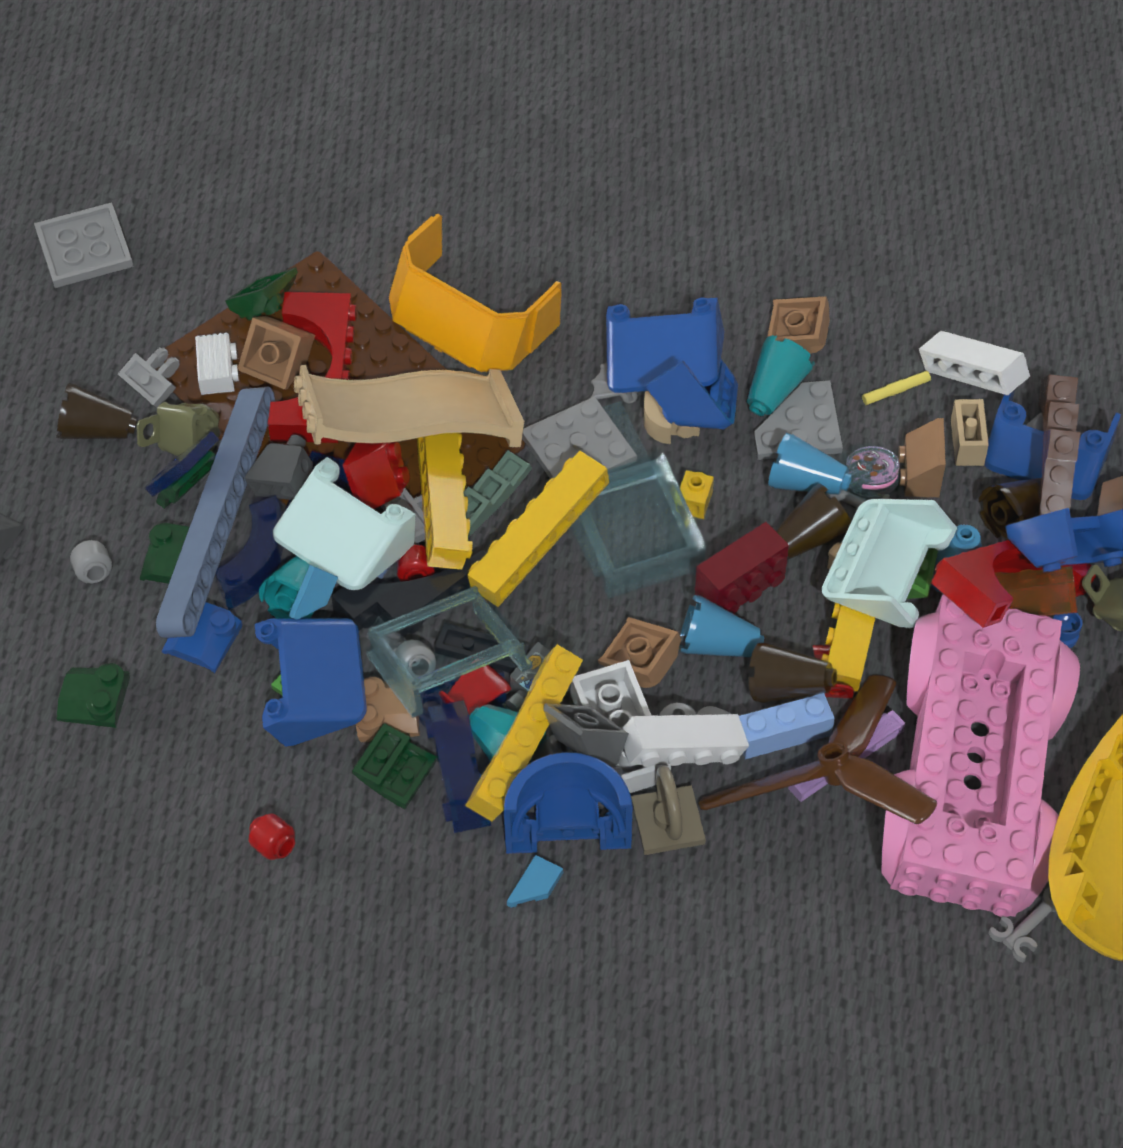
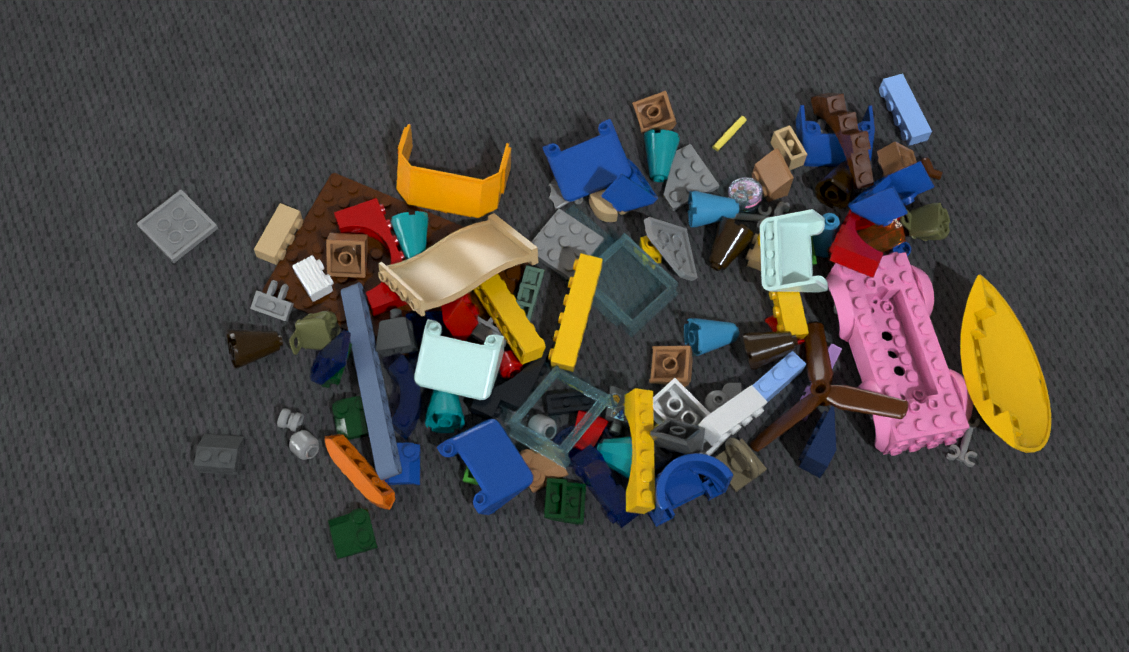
camera: 30 degrees left, 10 degrees up
(88, 523) = (290, 420): none -> light grey wheel
(139, 616) = (359, 471): none -> orange brick
(202, 298) = (278, 234): none -> tan brick
(262, 295) = (318, 219): dark green slope -> none
(272, 836) = (515, 579): red head -> none
(313, 592) = (463, 412): dark azure tile -> none
(374, 348) = (411, 232): none -> teal cone
(536, 882) = (683, 538): dark azure tile -> none
(725, 492) = (673, 245): none -> light grey plate
(743, 569) = (707, 290): dark red brick -> none
(791, 839) = (820, 445): none -> dark blue slope
(974, 362) = (773, 102): white brick -> none

